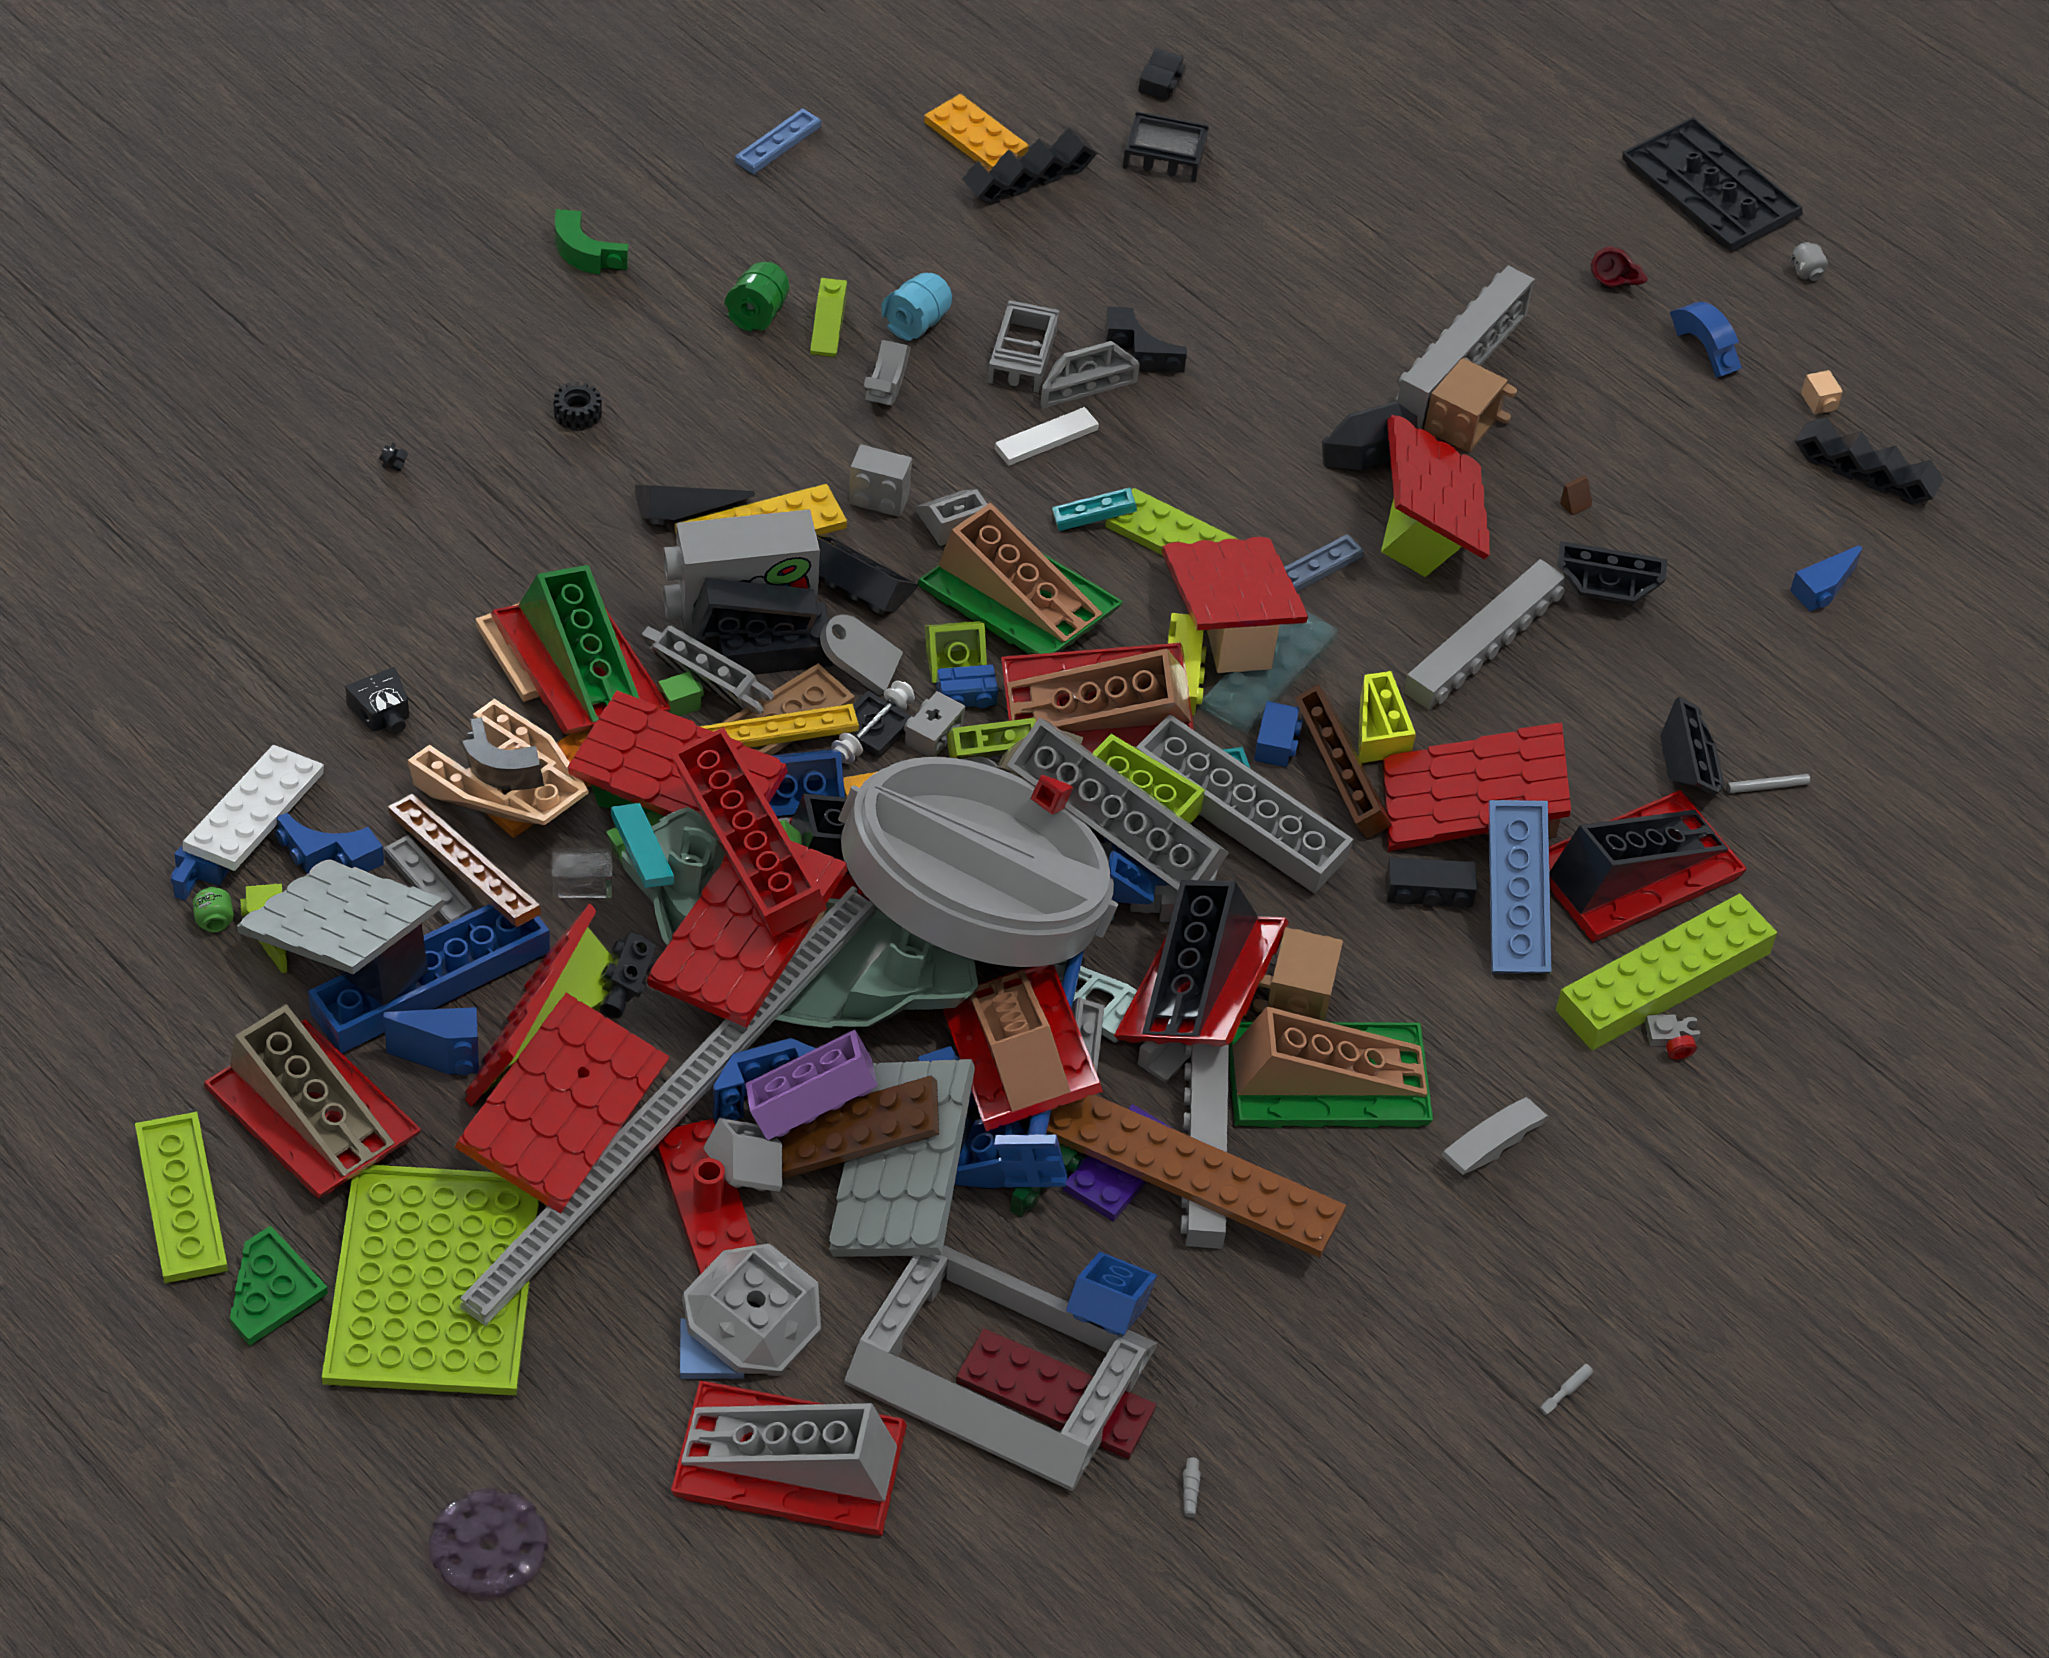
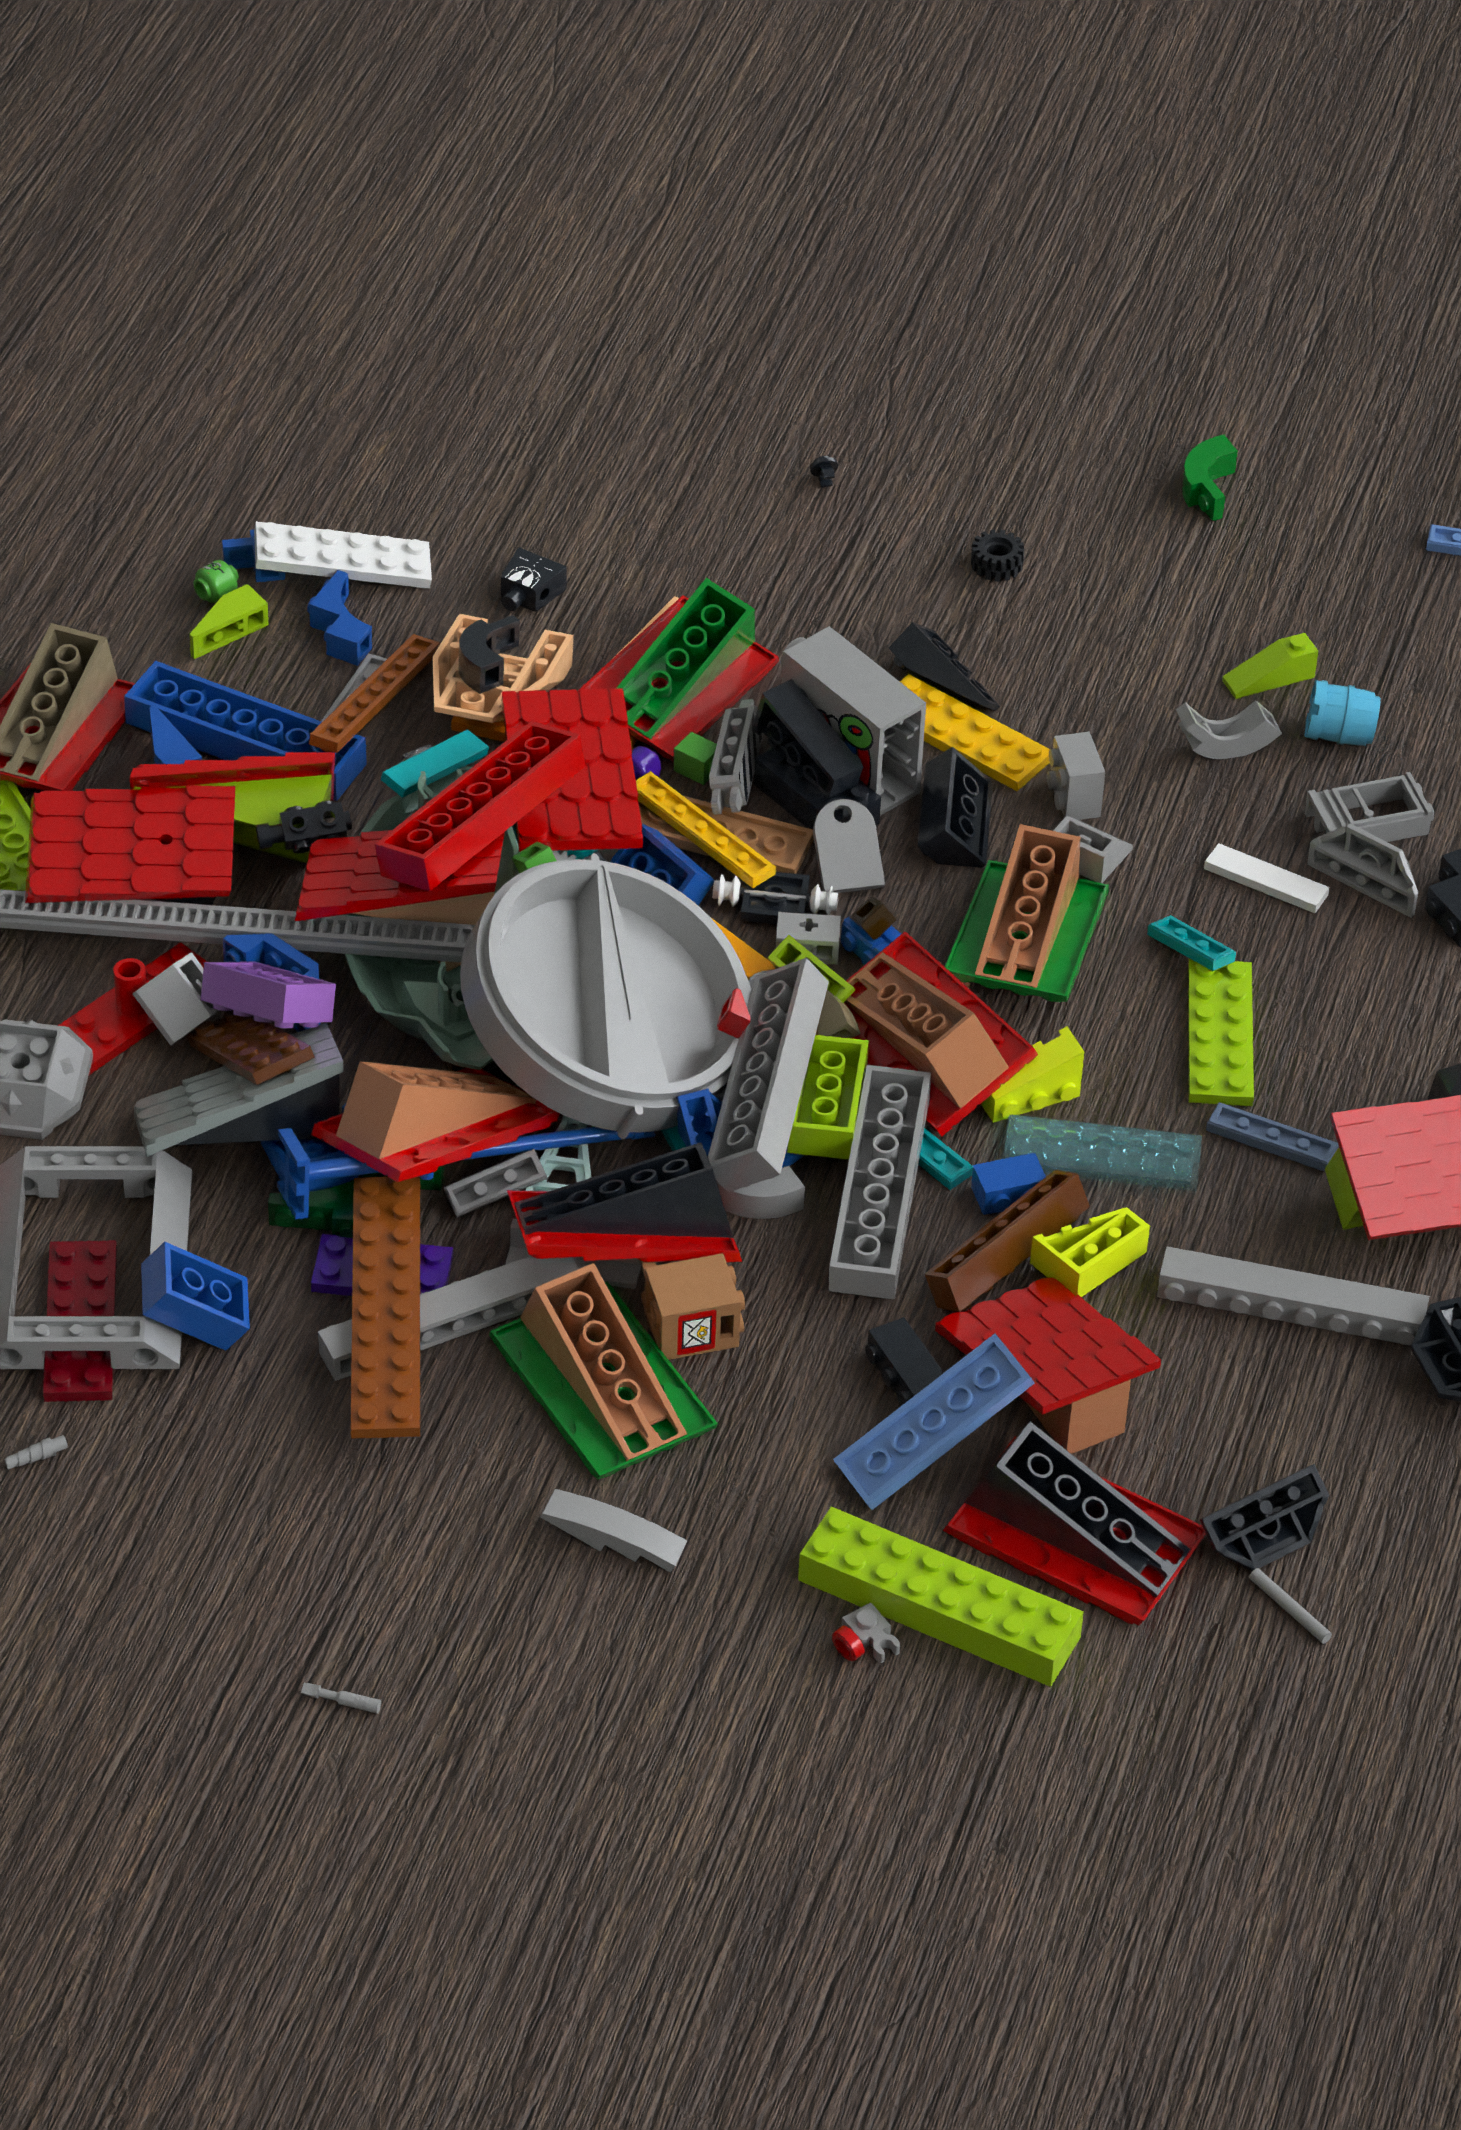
camera: 65 degrees right, 5 degrees down
(352, 923) = (217, 645): light grey piece -> none
(757, 296) = (1246, 605): green piece -> none
(955, 646) = (921, 911): lime slope -> none
(961, 670) = (873, 918): none -> dark brown slope
(1237, 596) = (1134, 1065): red piece -> none

